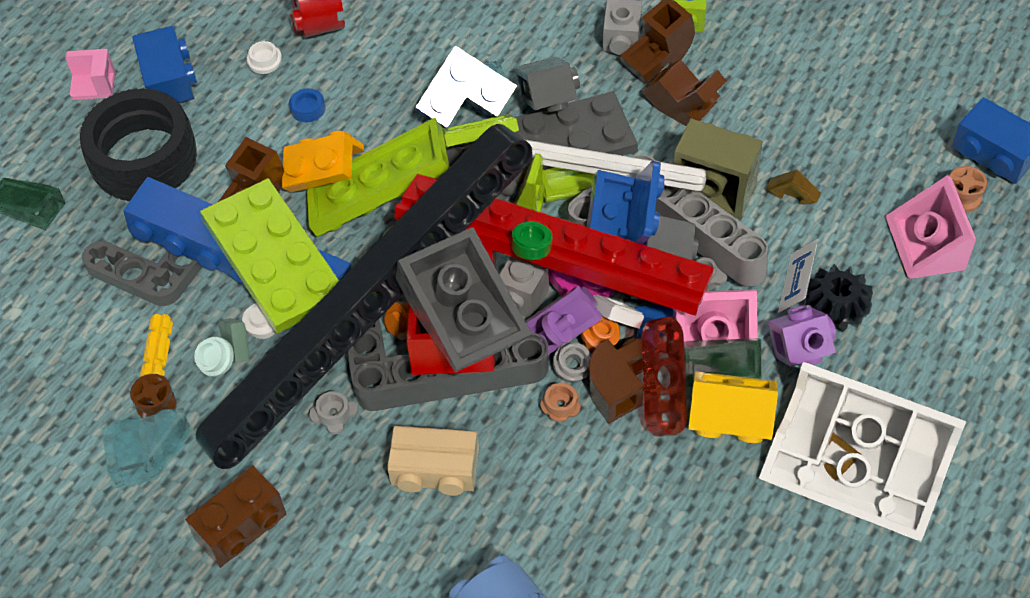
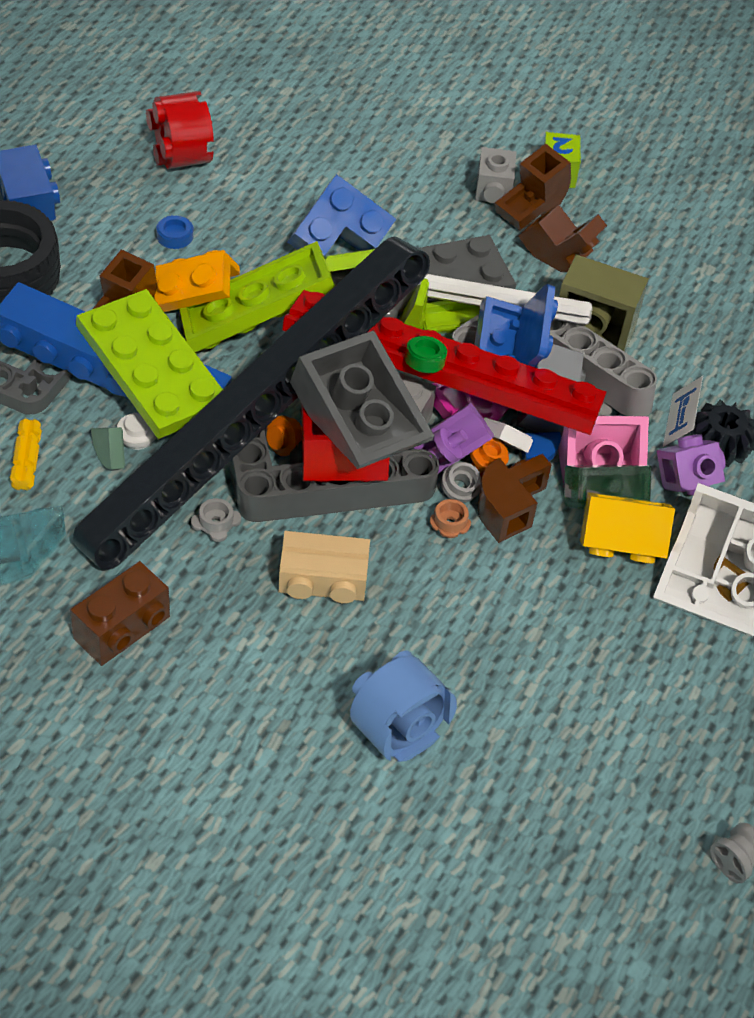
camera: 10 degrees left, 5 degrees down
(152, 388) = (27, 488): reddish brown wheel -> none
(214, 356) = (89, 462): light aqua plate -> none
(264, 57) = (128, 184): white plate -> none
(548, 83) = (426, 221): dark grey brick -> none
(653, 390) = (567, 523): clear red beam -> none
(794, 185) = (674, 329): pearl gold tile -> none

